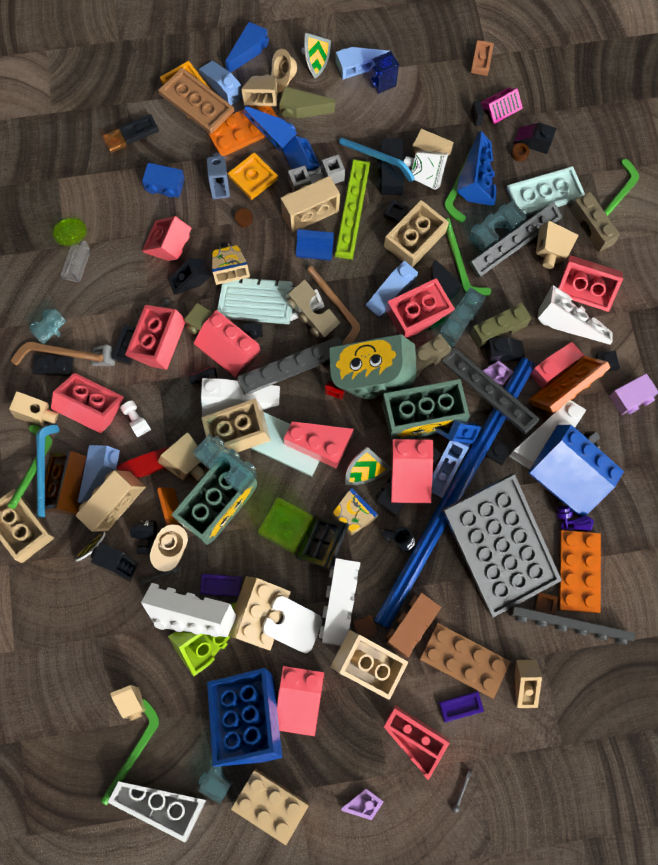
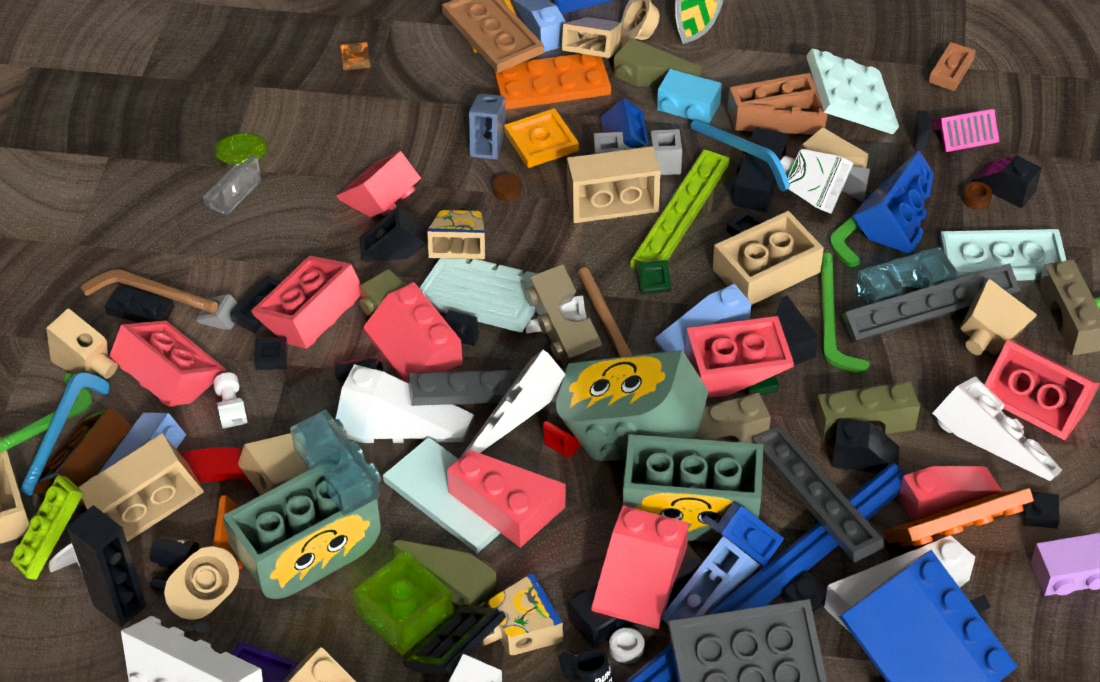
camera: 20 degrees right, 25 degrees down
(48, 326) = (155, 253): clear light blue hips -> none
(65, 539) = (46, 527): none -> lime tile
(138, 129) = (396, 50): black plate -> none
(146, 378) = (271, 353): none -> black plate
(163, 180) = (405, 114): blue brick -> none
(238, 426) = (392, 438): tan brick -> none
(272, 127) = (592, 81): blue slope -> none
(307, 498) = (466, 576): none -> olive slope
(308, 376) = (529, 393): none -> white wedge
(314, 244) = (603, 241): blue panel -> none
(332, 121) = (689, 96): none -> medium azure brick
(353, 262) = (654, 277): none -> dark green tile
(356, 60) = (761, 33): light blue slope -> none
(365, 468) = (567, 554): shield -> none
(384, 72) = (788, 48): clear blue brick -> none
(390, 117) = (778, 105): none -> nougat wedge
(412, 512) = (626, 645): none -> white tile
(430, 95) = (852, 91): none -> light aqua plate
(452, 163) = (857, 183): none -> light grey slope
(461, 316) = (820, 372): clear light blue arch -> none
(498, 372) = (845, 477): lavender piece -> none

